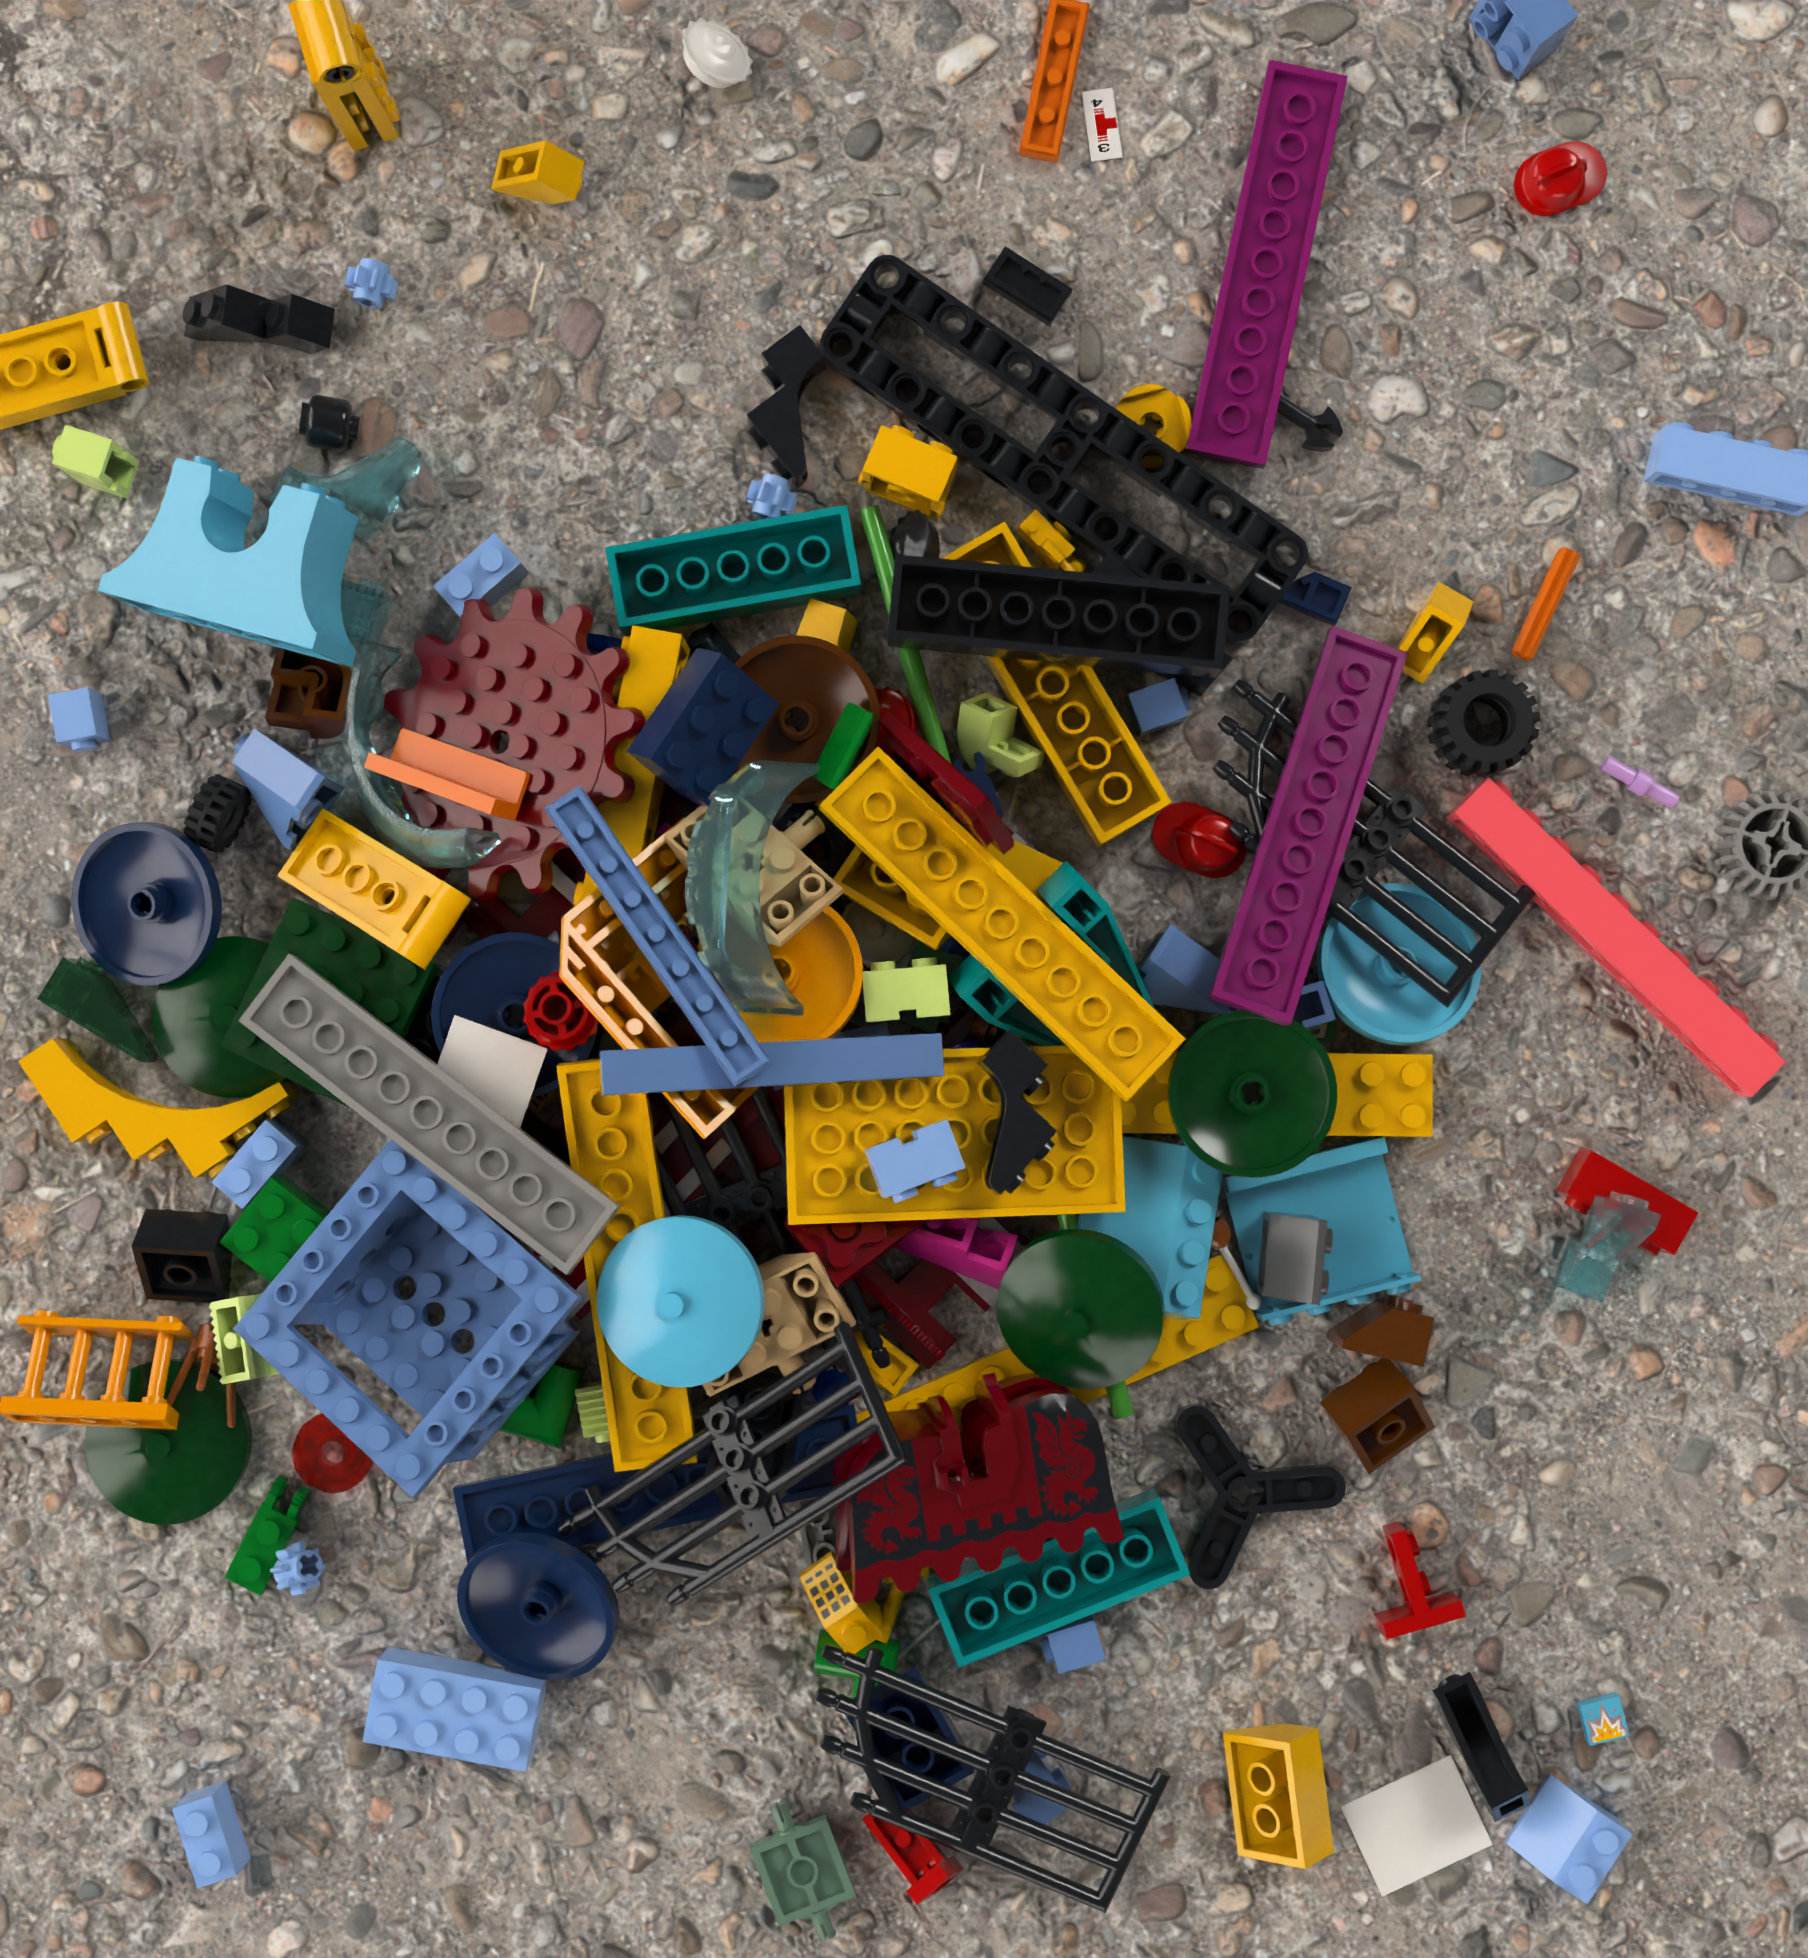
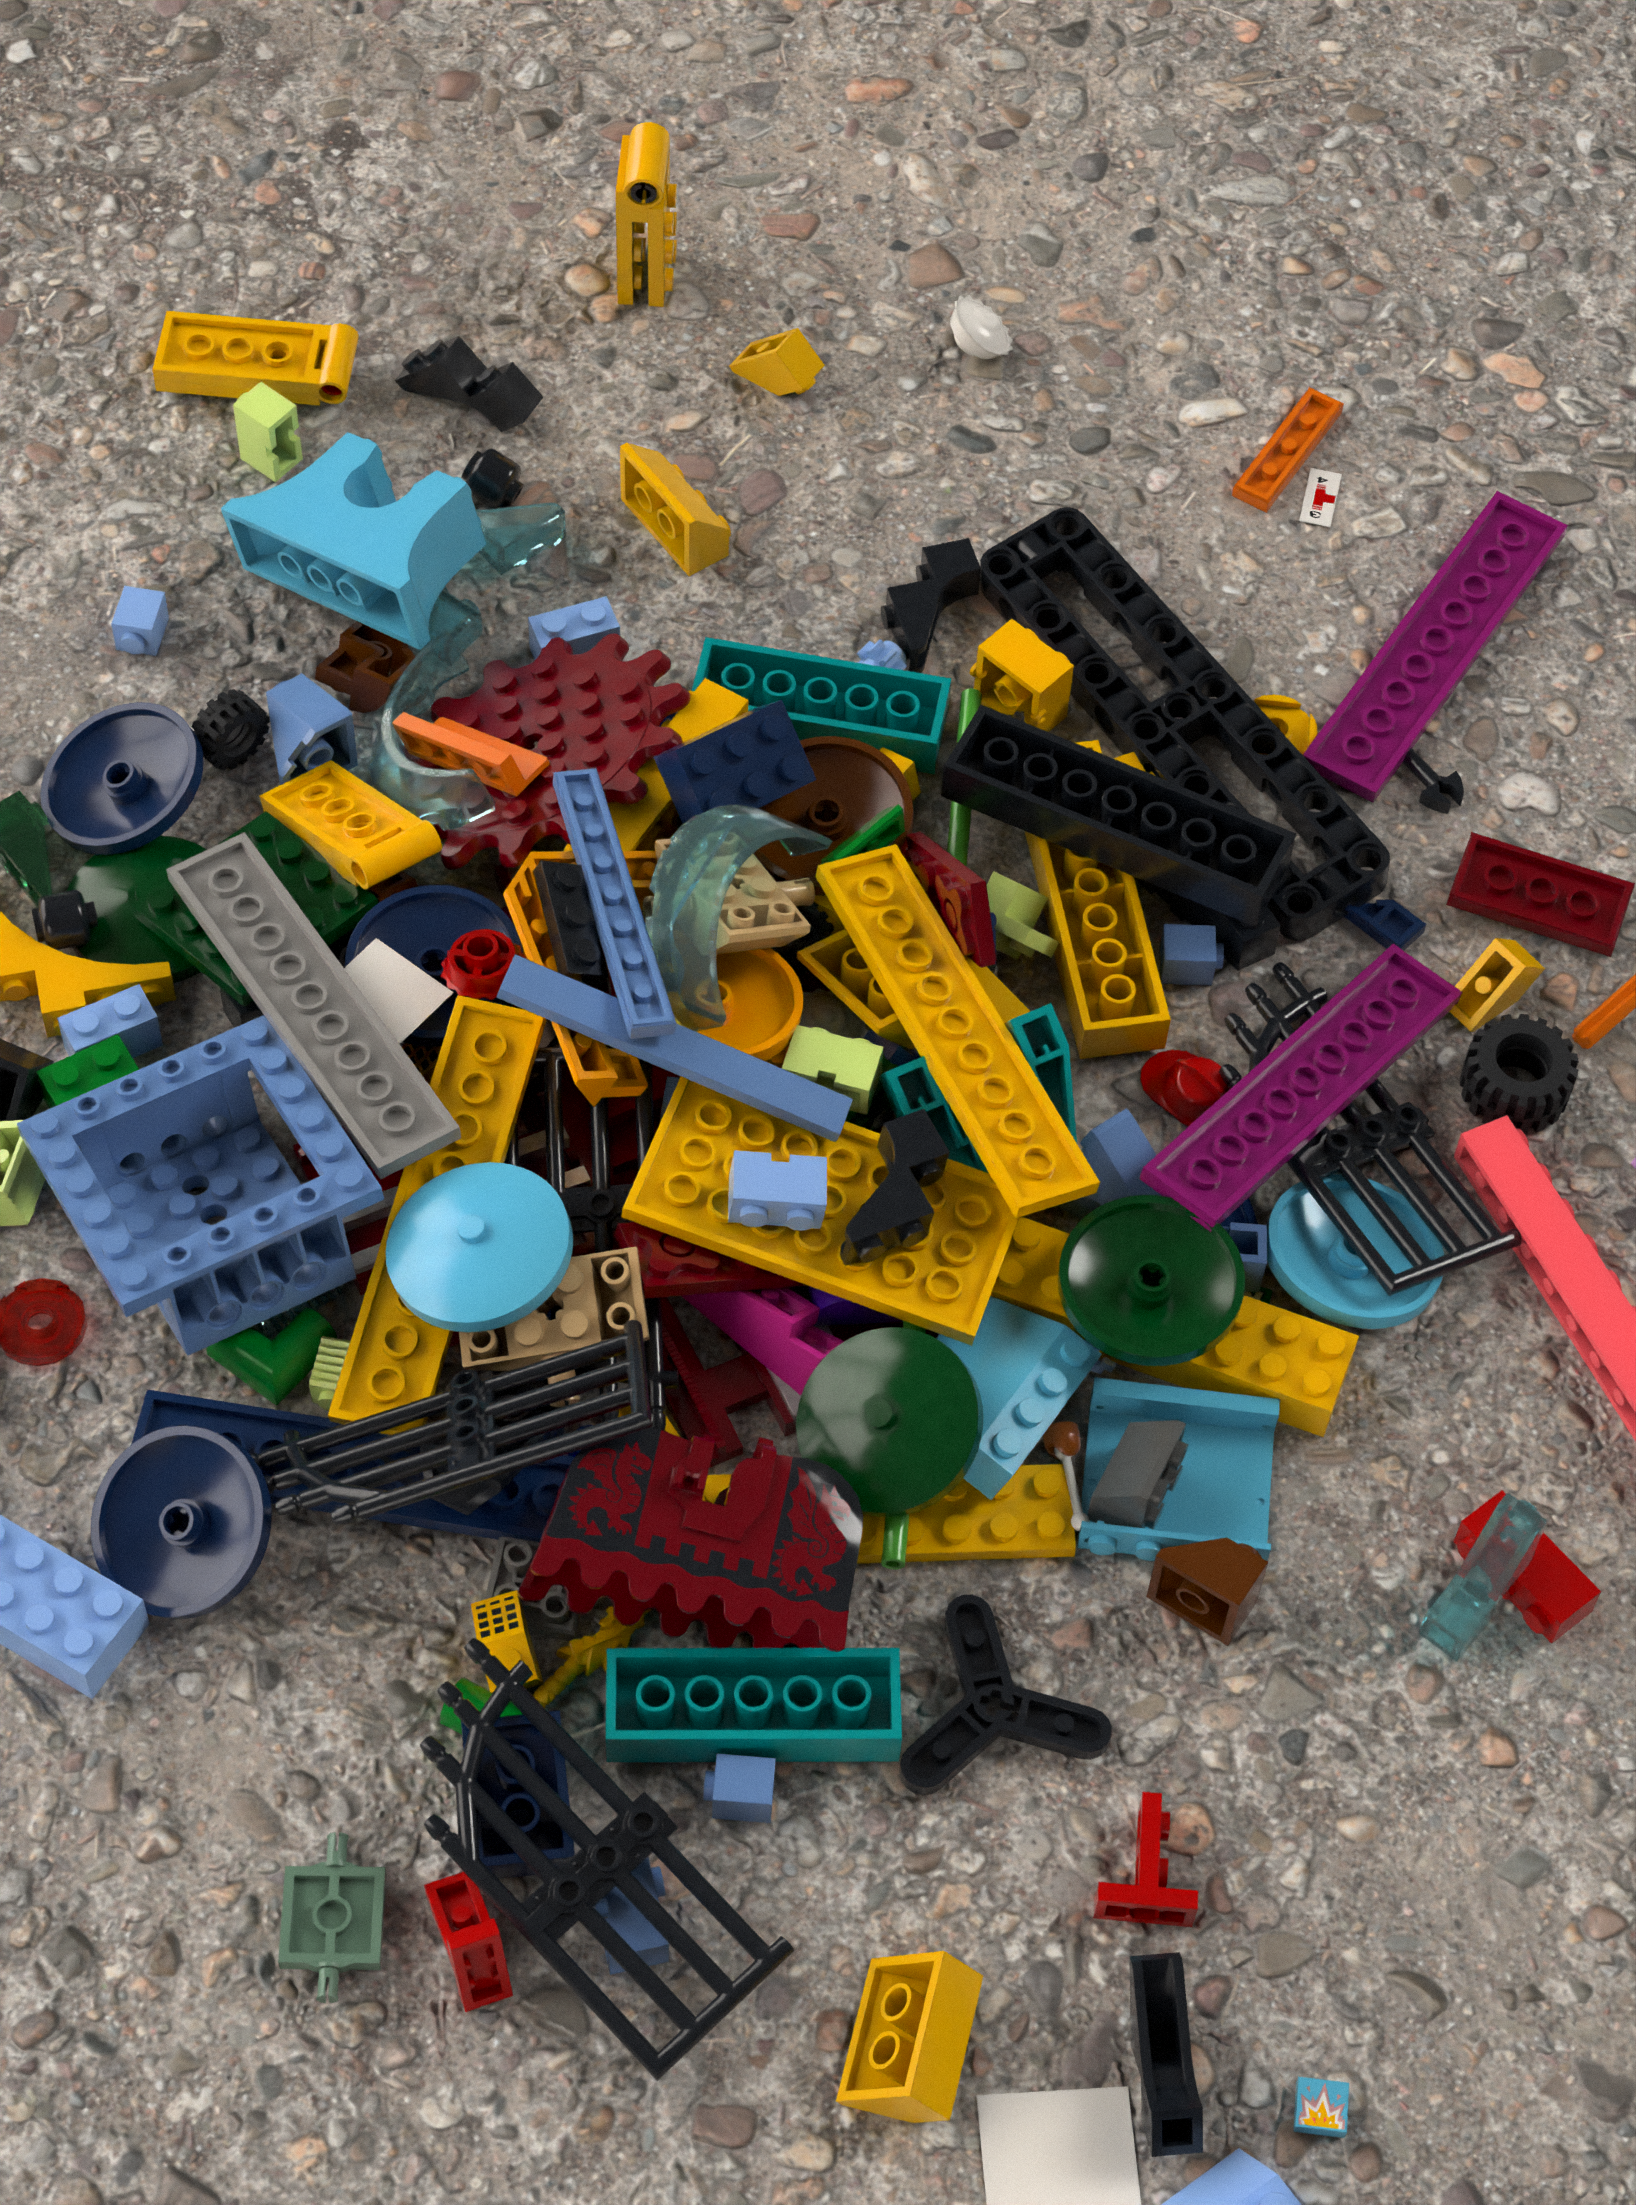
camera: 15 degrees right, 30 degrees down
(168, 1075) = (64, 919): none -> black head
(371, 283) = (585, 391): light blue gear -> none
(511, 392) = (672, 509): none -> yellow slope
(630, 976) = (570, 922): none -> black plate
(1027, 286) = (1198, 588): black plate -> none
(1377, 1413) = (1175, 1681): reddish brown slope -> none
(1443, 514) = (1541, 894): none -> dark red piece

